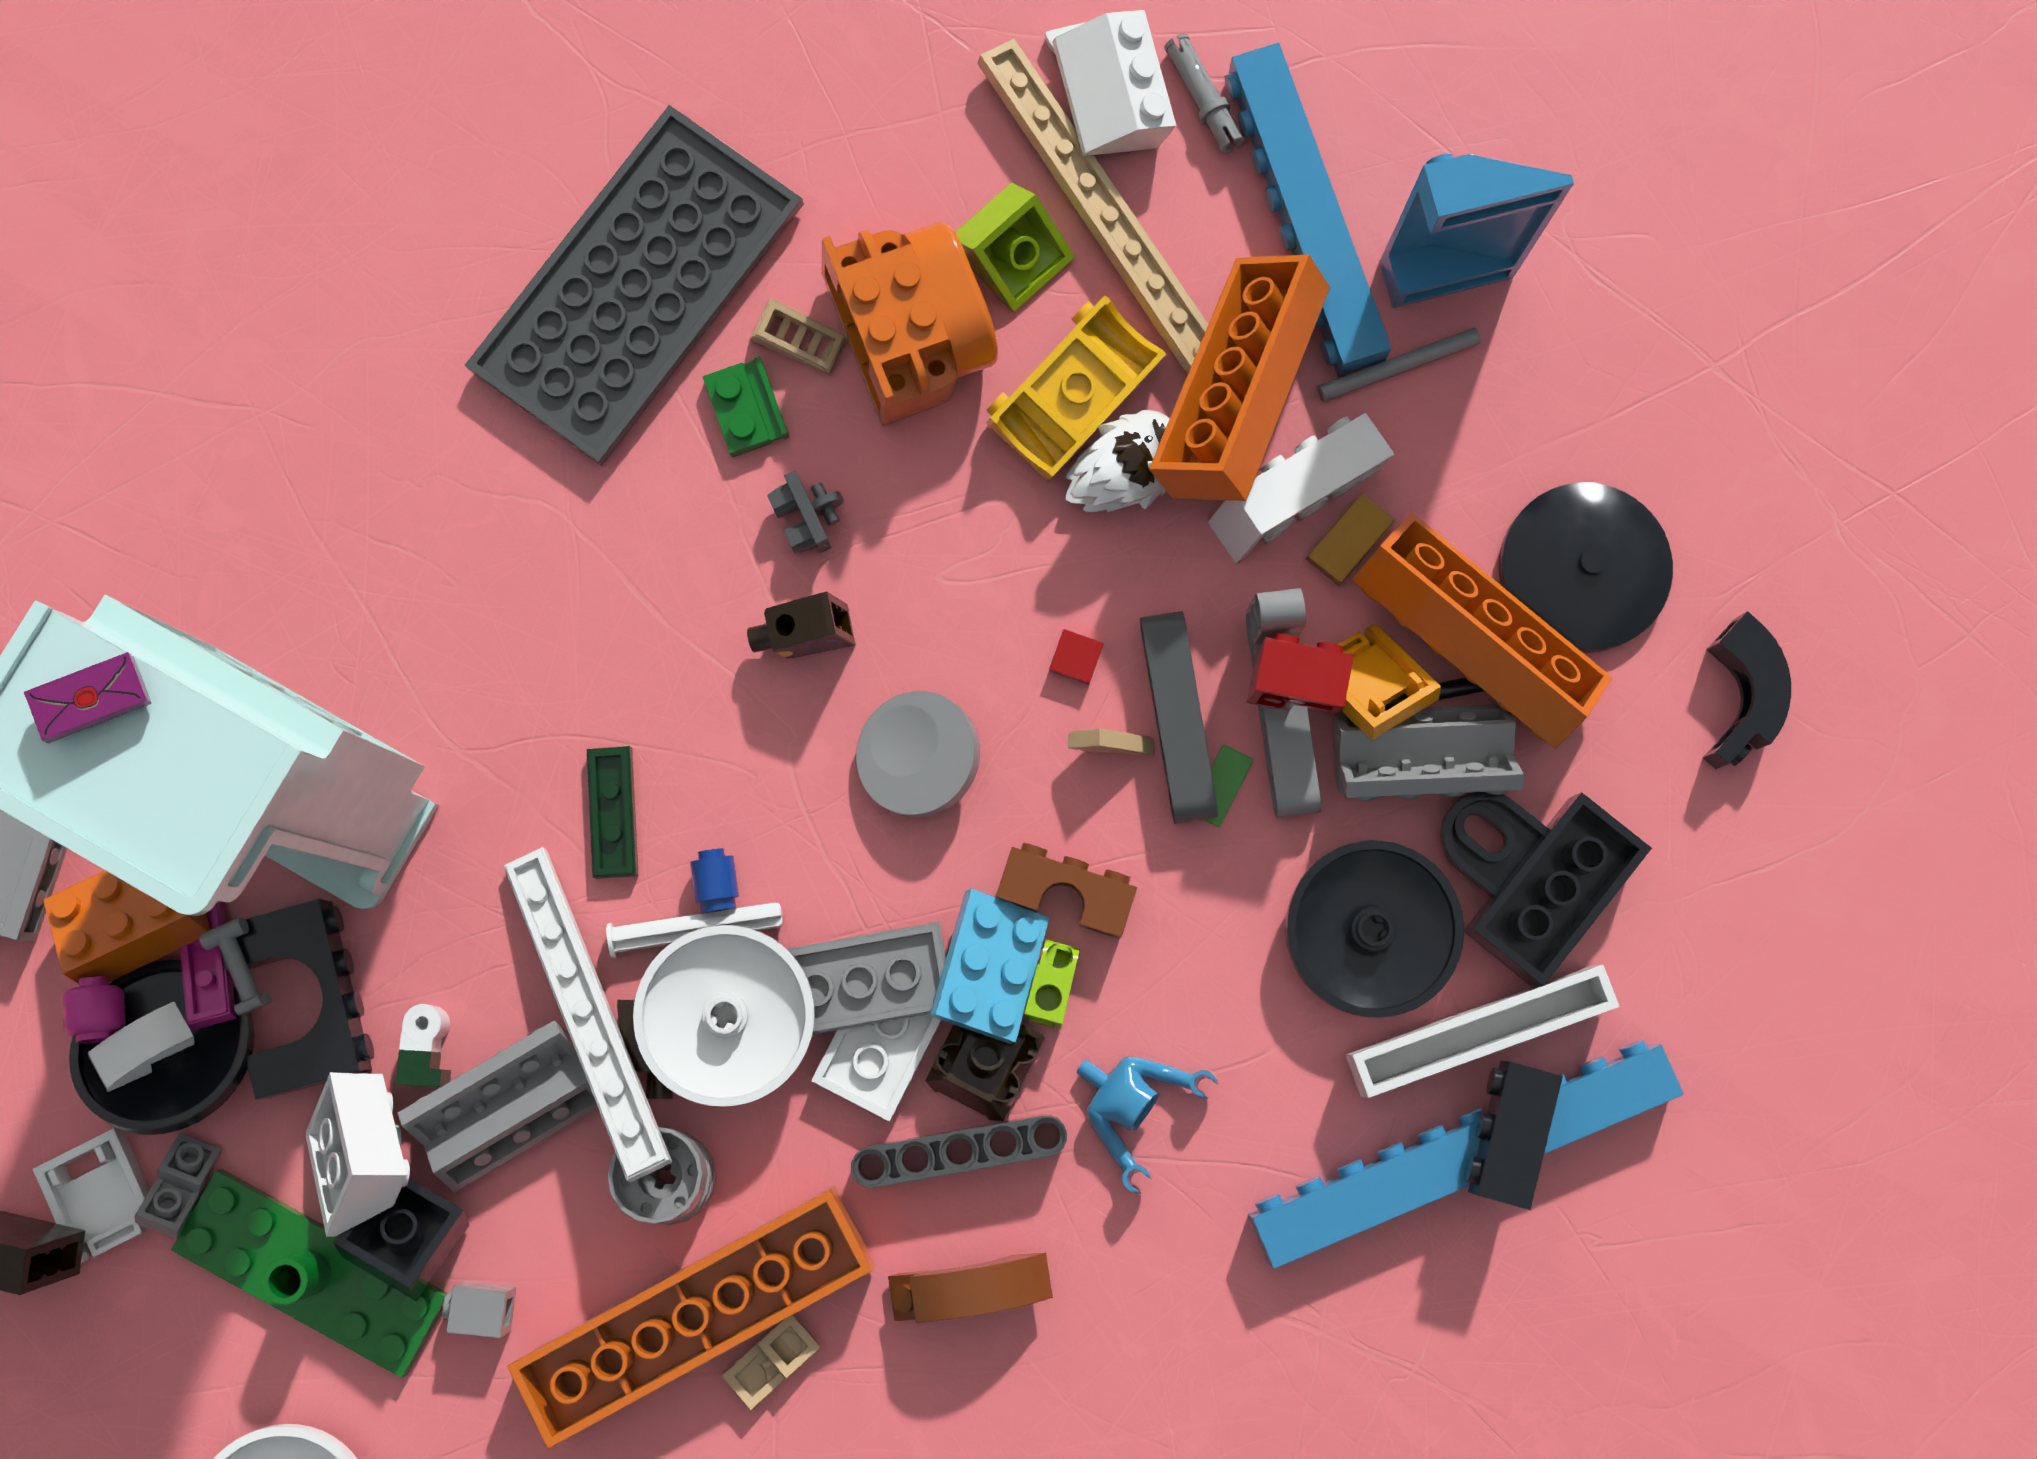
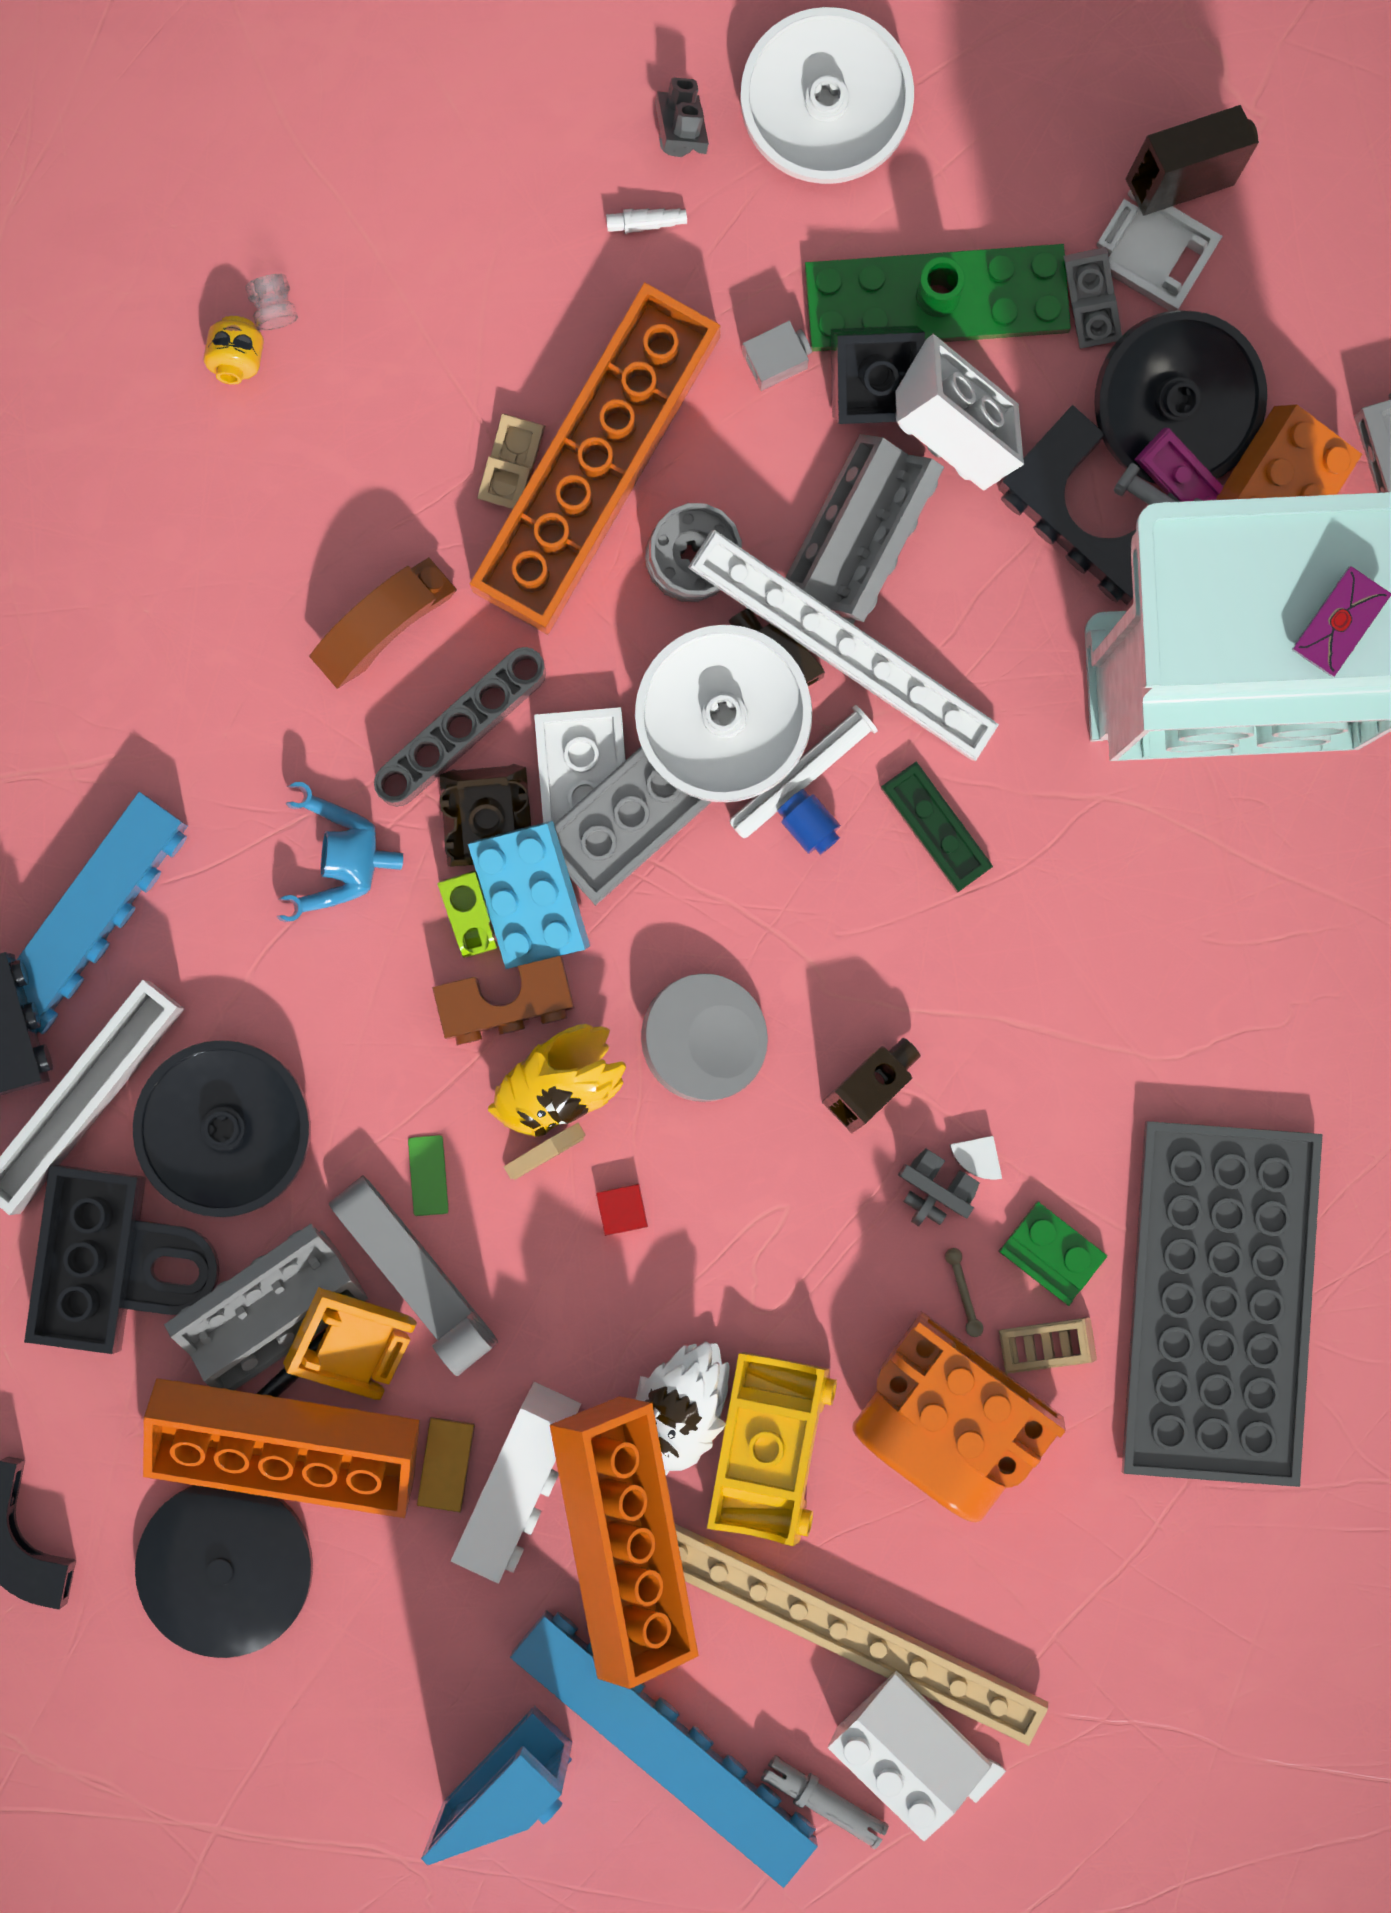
camera: 150 degrees right, 5 degrees up
(93, 1010) = (1253, 392): dark pink head -> none
(138, 1045) = (1194, 387): white slope -> none
(421, 1047) = (966, 531): leg -> none
(755, 520) = (978, 1157): none -> white tile
(848, 389) = (973, 1326): none -> dark tan hinge
(1014, 245) = (907, 1547): lime slope -> none
(1068, 792) = (558, 1082): none -> yellow head
(1178, 717) = (500, 1210): dark grey beam -> none
(1300, 675) = (412, 1300): red brick -> none
(1399, 364) = (497, 1654): light grey bar -> none

